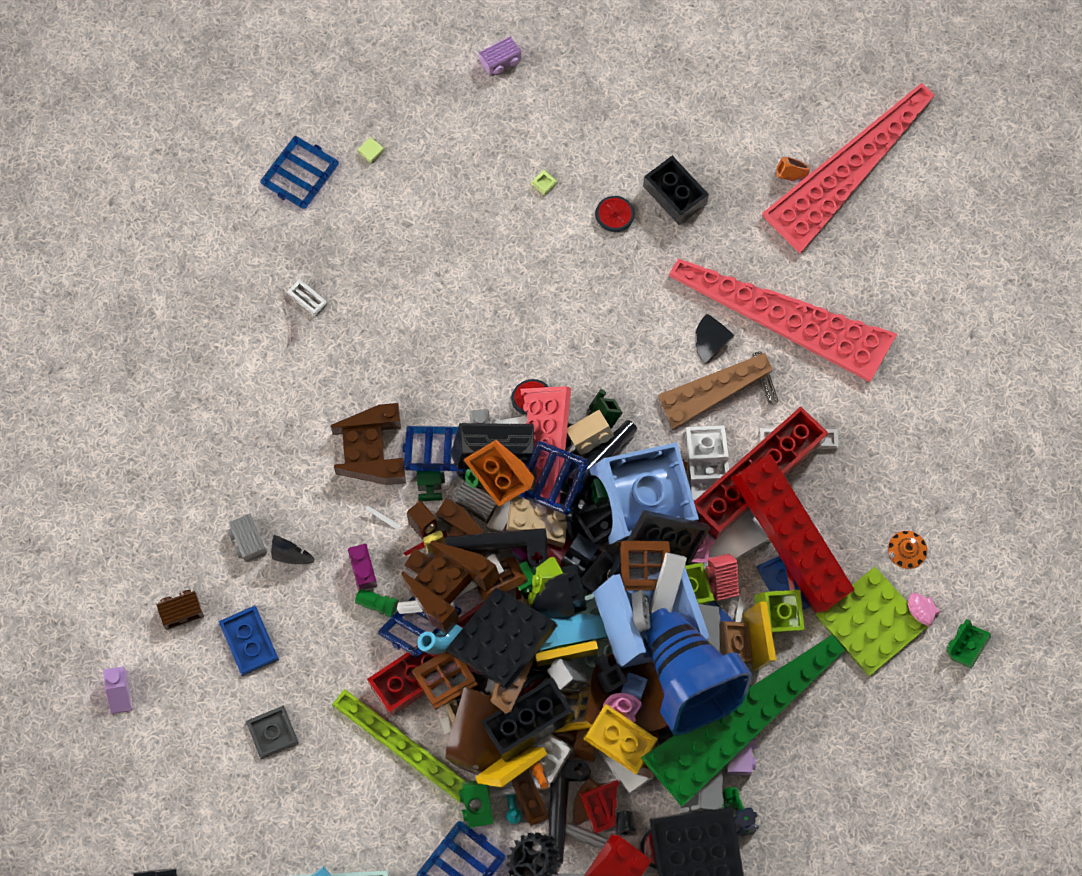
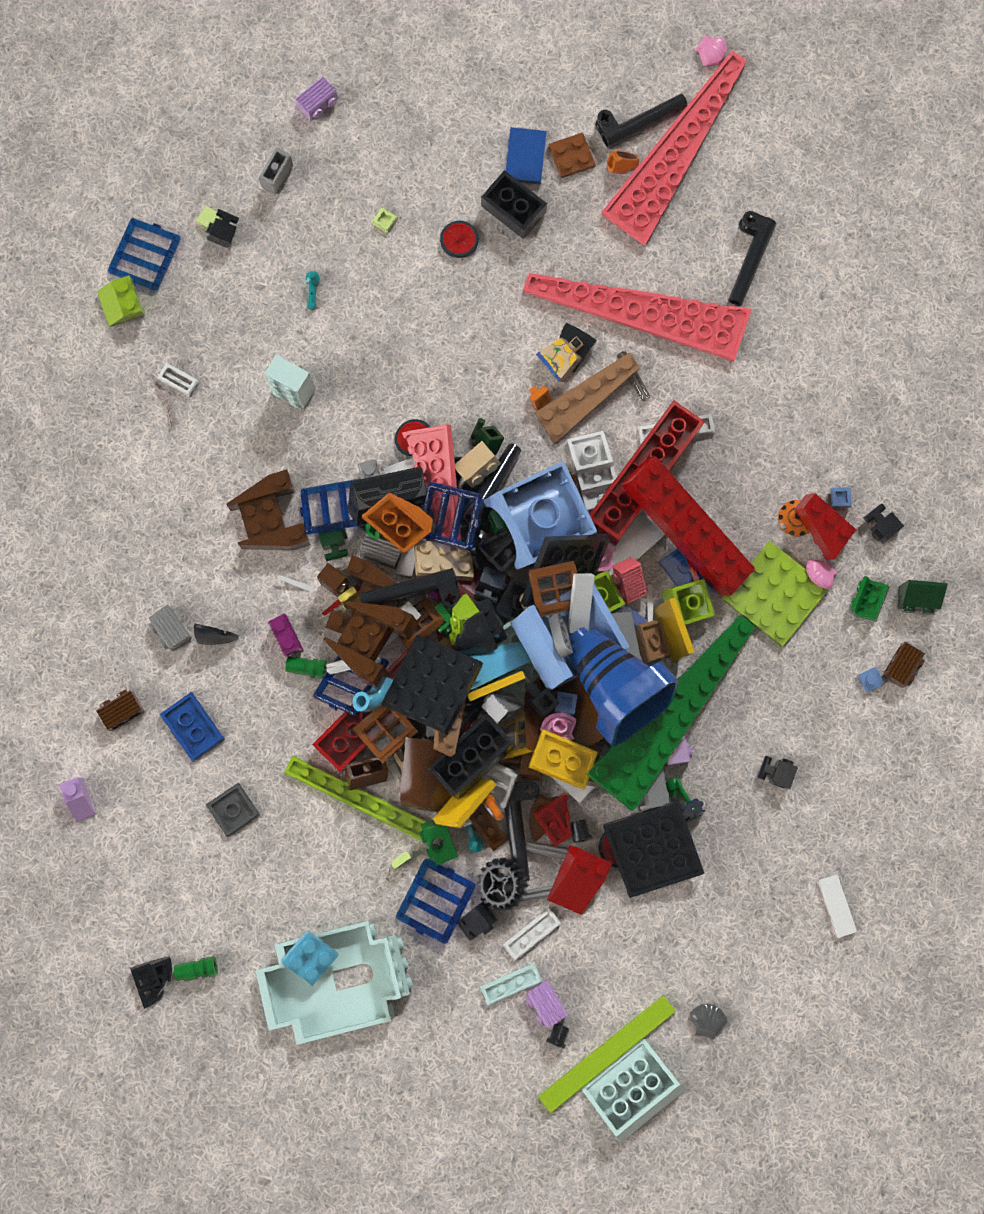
camera: 10 degrees left, 10 degrees up
(266, 212) = (120, 301): none -> lime slope
(380, 163) = (220, 230): none -> black brick
(416, 719) = (365, 773): none -> reddish brown brick
(418, 318) = (289, 382): none -> light aqua brick
(434, 816) = (401, 860): none -> yellowish green tile
(446, 116) = (275, 170): none -> light grey brick
(461, 227) = (313, 280): none -> teal piece
(666, 380) = (539, 397): none -> orange tile
(695, 345) = (561, 357): none -> torso
(697, 145) = (526, 154): none -> blue tile
(743, 154) = (572, 155): none -> dark orange plate
(789, 141) = (614, 133): none -> black axle
(845, 805) = (781, 774): none -> black brick
(901, 79) = (712, 50): none -> bright pink animal
(920, 259) = (762, 230): none -> black axle
(935, 560) = (825, 525): none -> red wedge
(956, 536) = (840, 497): none -> medium blue plate
(956, 727) = (870, 679): none -> medium blue plate
(993, 717) = (904, 664): none -> reddish brown brick
(997, 574) = (885, 526): none -> black brick
(1022, 650) = (921, 596): none -> dark green slope

